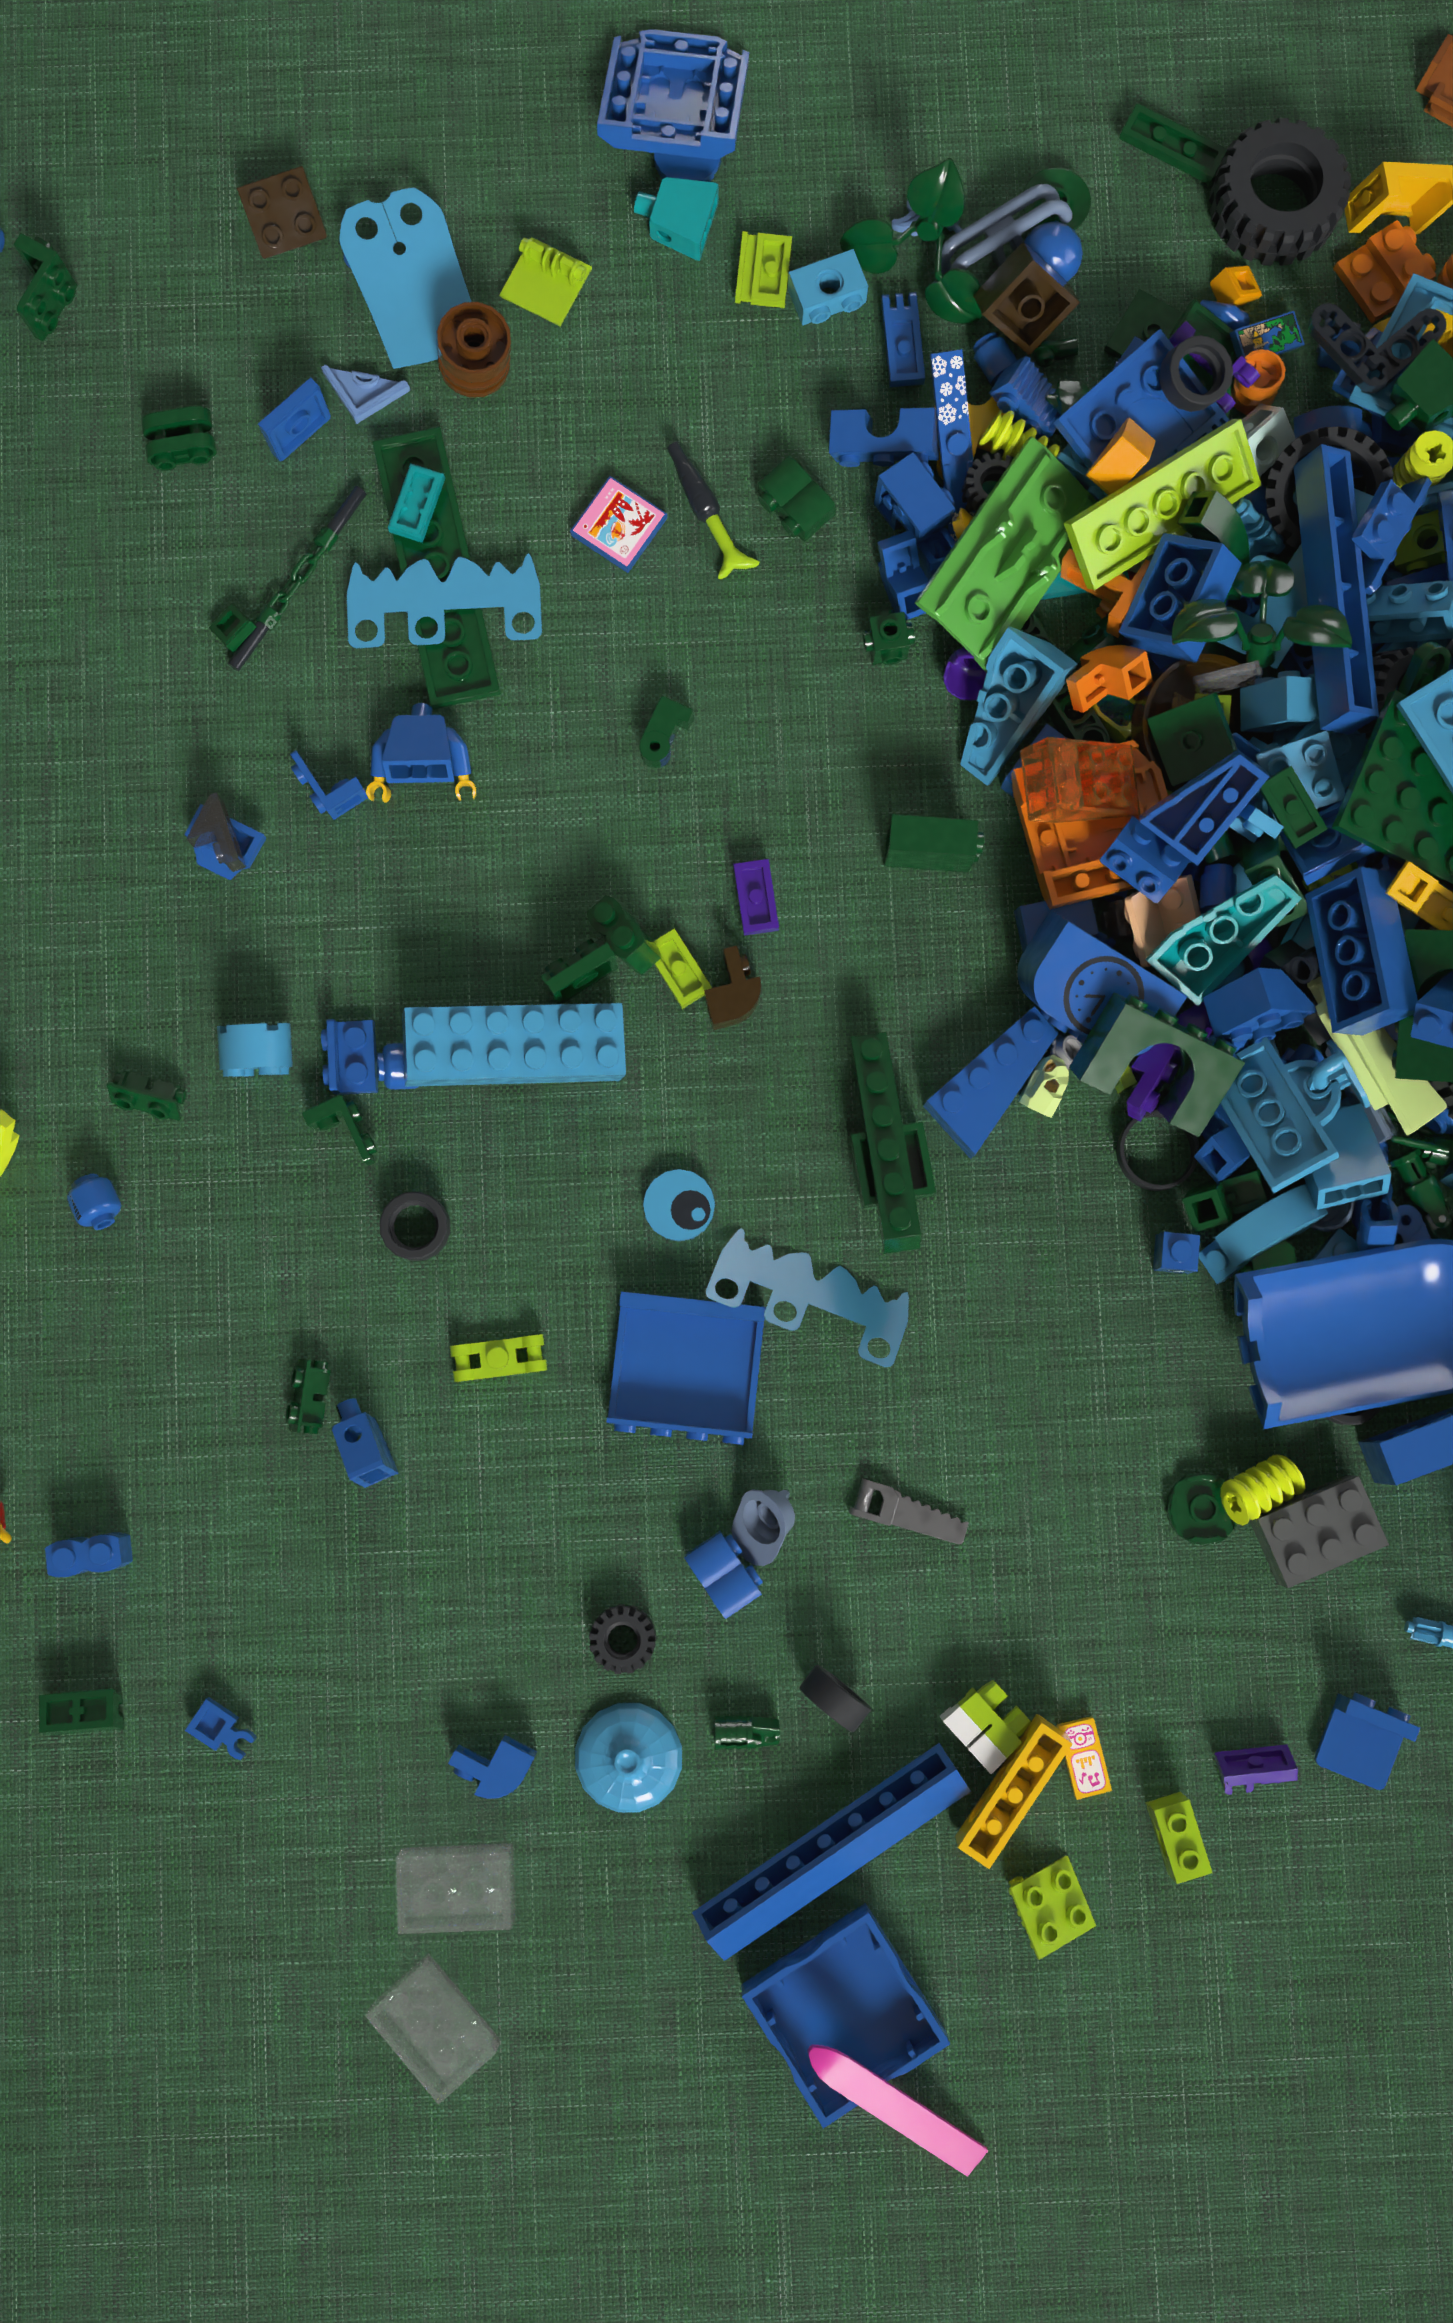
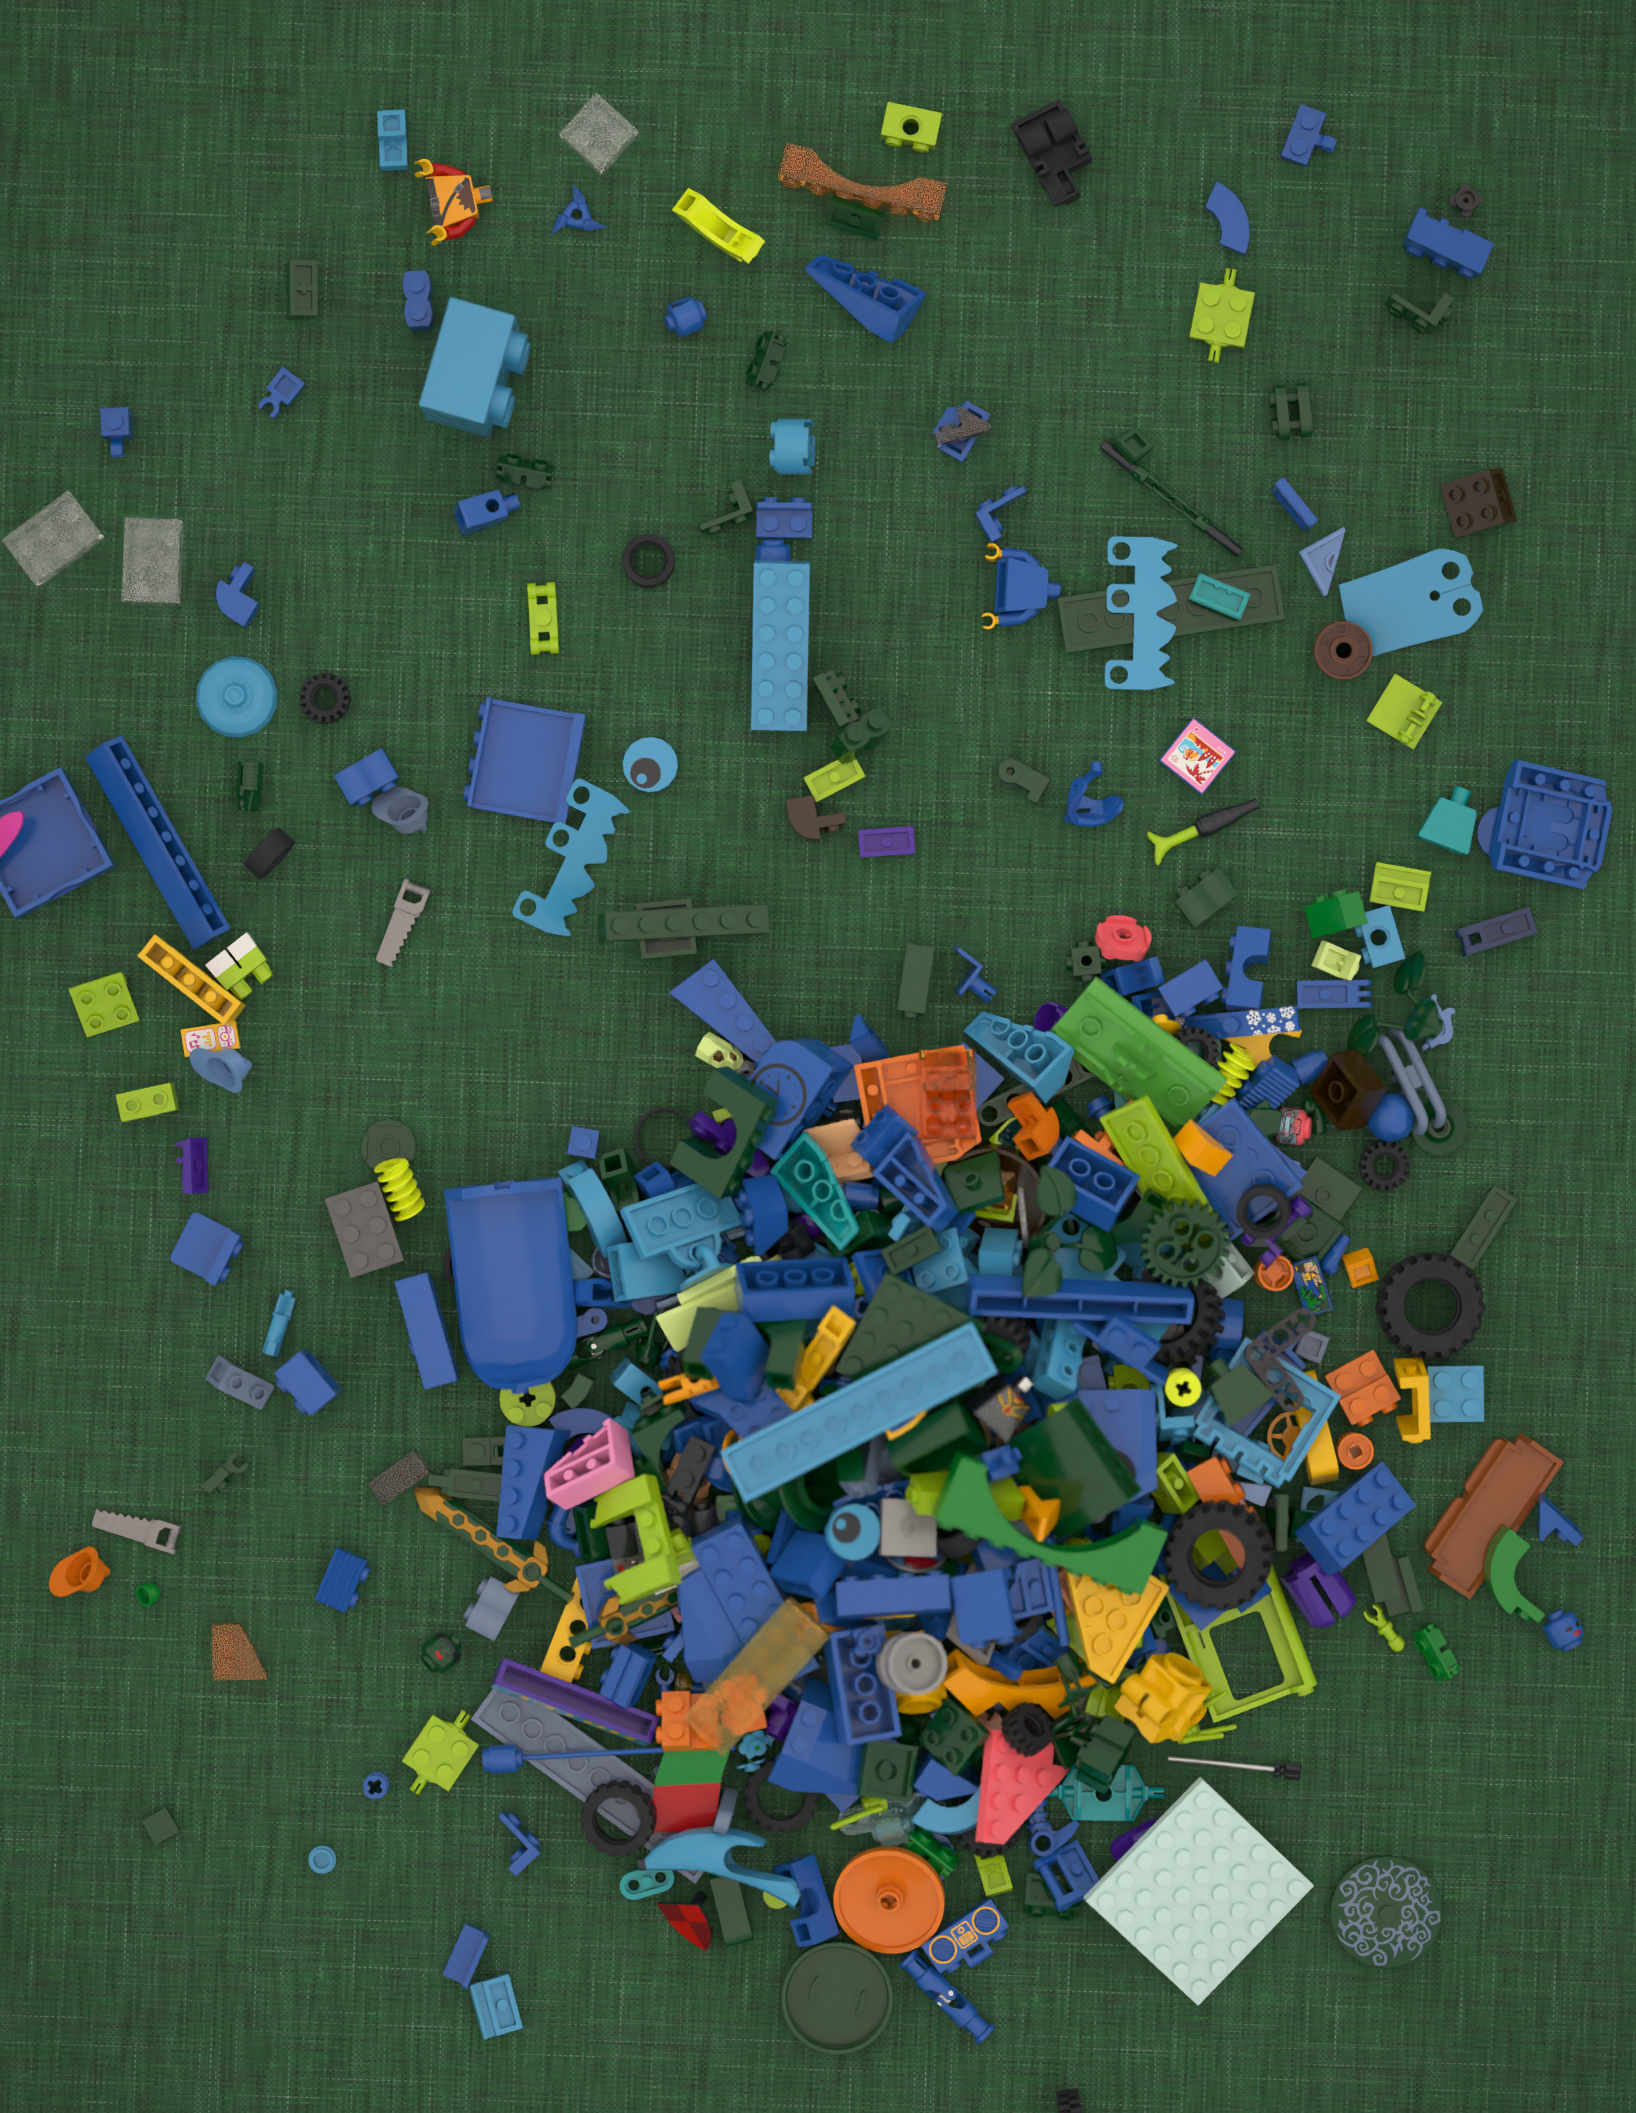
camera: 95 degrees right, 5 degrees up
(63, 532) = (1222, 315): none -> lime plate
(67, 958) = (876, 303): none -> blue wedge
(166, 1475) = (472, 368): none -> dark azure brick
(276, 1951) = (116, 426): none -> blue brick
(696, 637) = (1099, 810): none -> blue helmet
(805, 333) = (1335, 913): none -> green brick
(809, 152) = (1497, 931): none -> dark blue plate
(857, 591) = (1135, 941): none -> coral plate
(862, 334) = (1336, 961): none -> yellowish green bracket
(923, 778) = (972, 979): none -> blue bracket
(1017, 897) = (866, 1041): none -> blue slope
(1070, 608) = (1099, 1107): none -> blue plate
(1072, 366) = (1294, 1126): none -> head
(1113, 246) = (1367, 1166): none -> black tyre
(1122, 1737) = (221, 1067): none -> medium blue piece
(1248, 464) = (1207, 1253): none -> dark green gear
(1380, 140) = (1456, 1393): none -> dark azure brick

